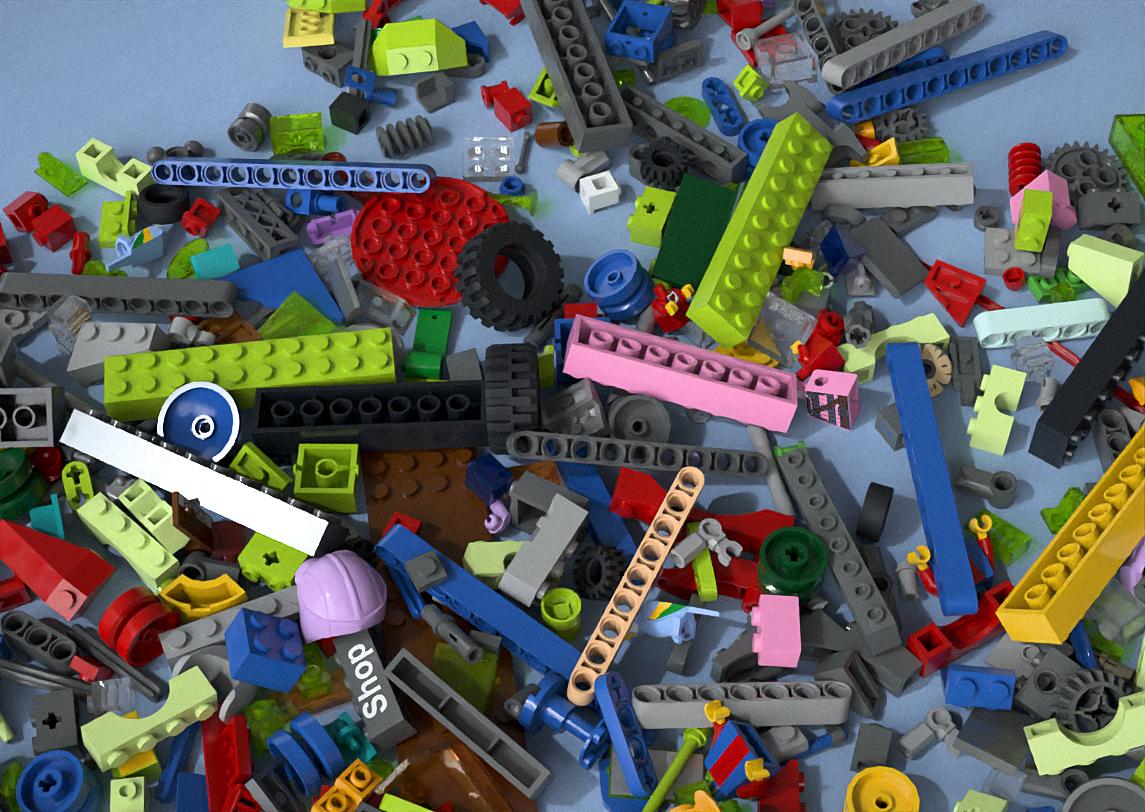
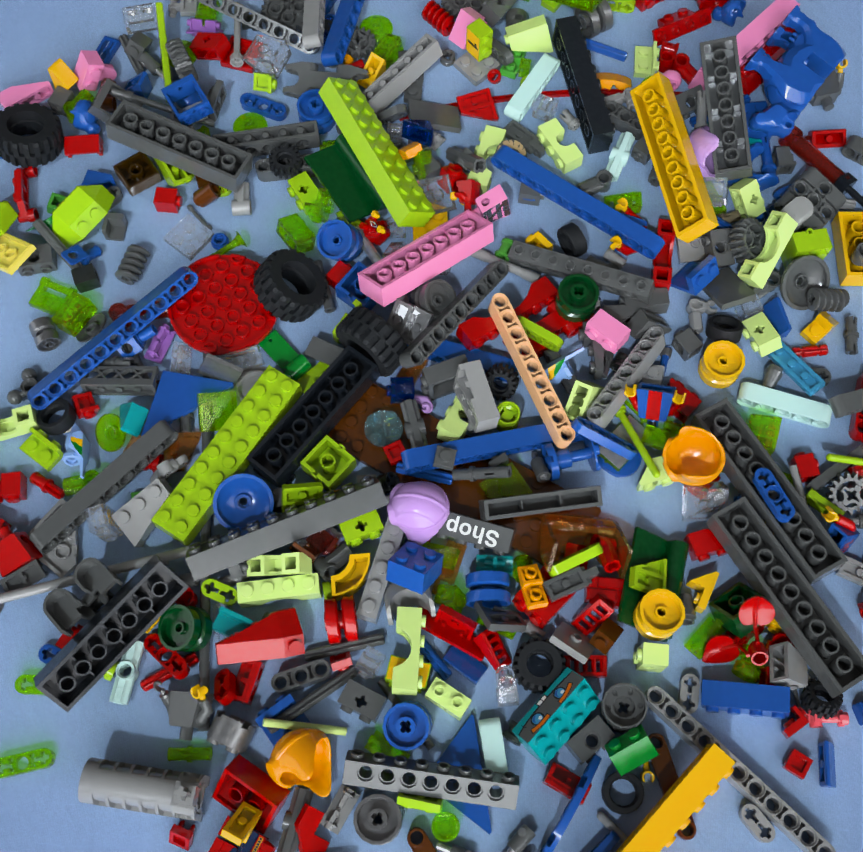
camera: 50 degrees left, 15 degrees up
(292, 99) = (49, 302): none -> clear neon green plate
(423, 496) = (383, 428): none -> clear light blue dish
(454, 525) = (413, 424): none -> dark grey piece
(490, 92) = (146, 200): red bush -> none
(516, 63) = (137, 173): none -> dark brown brick
(589, 241) = (295, 233): none -> clear neon green brick
(599, 191) = (265, 204): white brick -> none
(644, 236) = (321, 209): none -> clear neon green bracket
(658, 664) = (581, 398): none -> yellowish green slope
(708, 535) = (533, 320): light grey bar -> none
(836, 478) = (539, 240): none -> yellow bracket
(950, 127) = (377, 25): none -> clear neon green dish
(950, 780) = (724, 328): none -> black tyre
(1055, 481) = (620, 155): none -> light aqua piece
(1058, 516) = (639, 166): clear neon green bracket -> none

